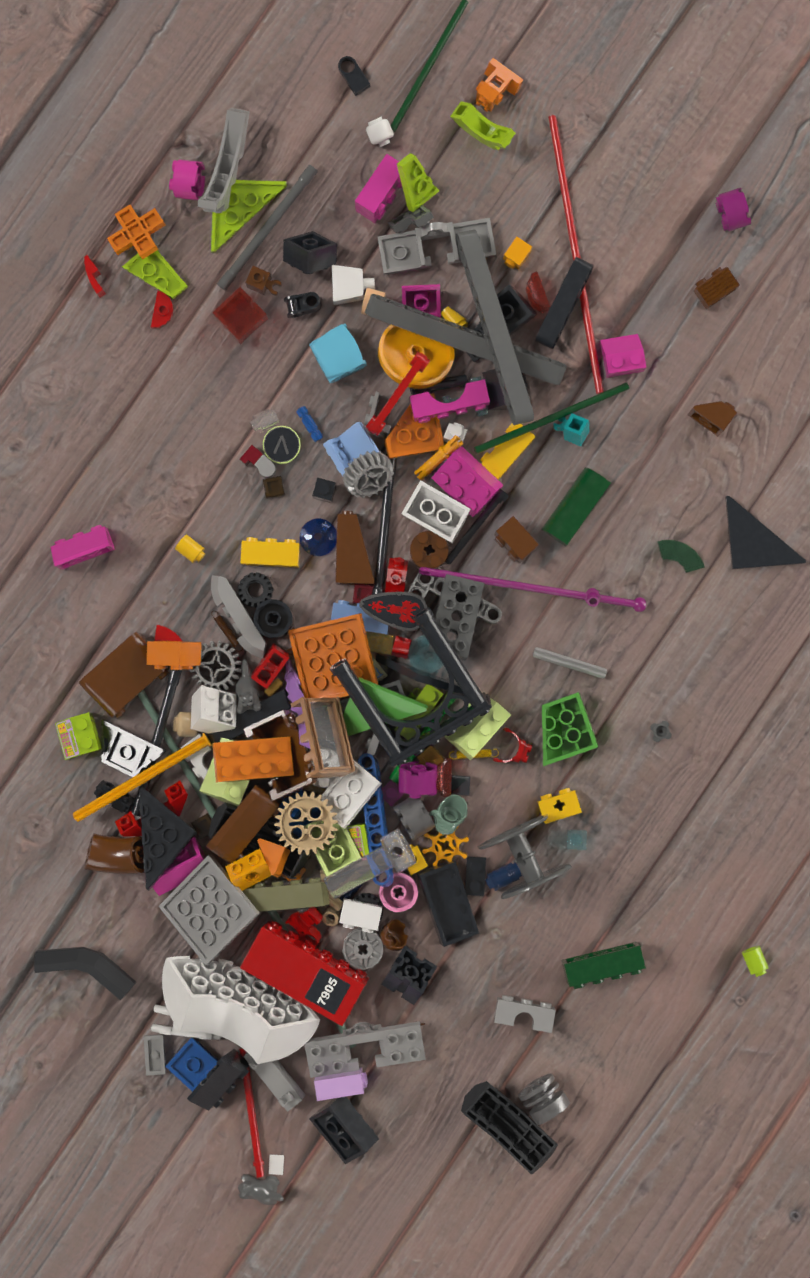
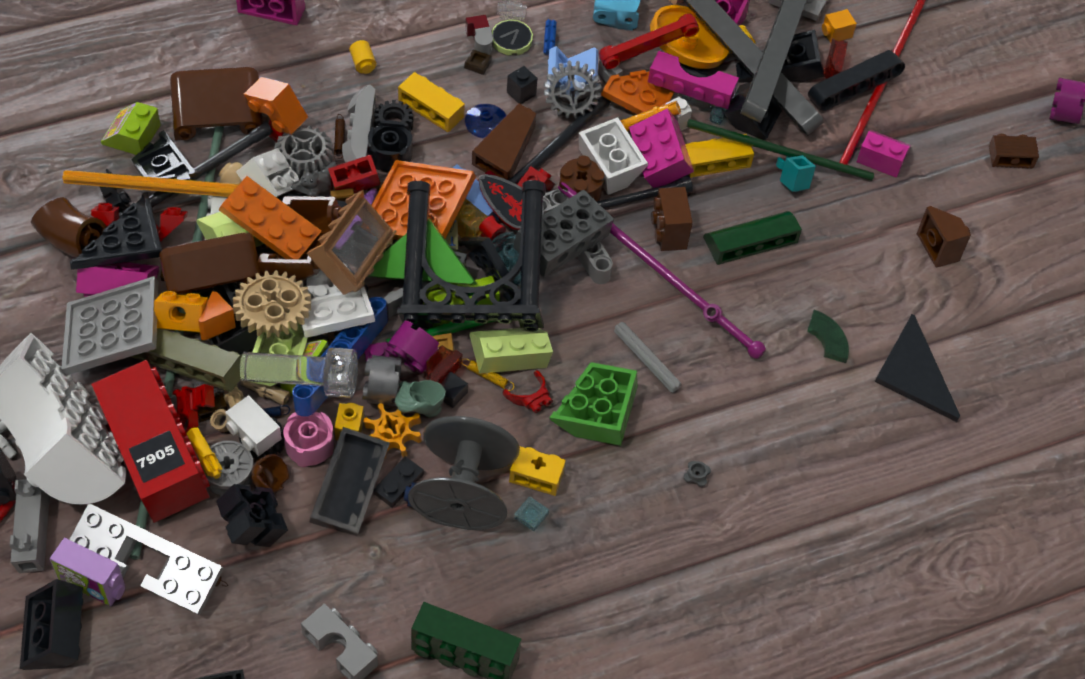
camera: 25 degrees right, 30 degrees down
(346, 956) = (206, 456): none -> yellow piece

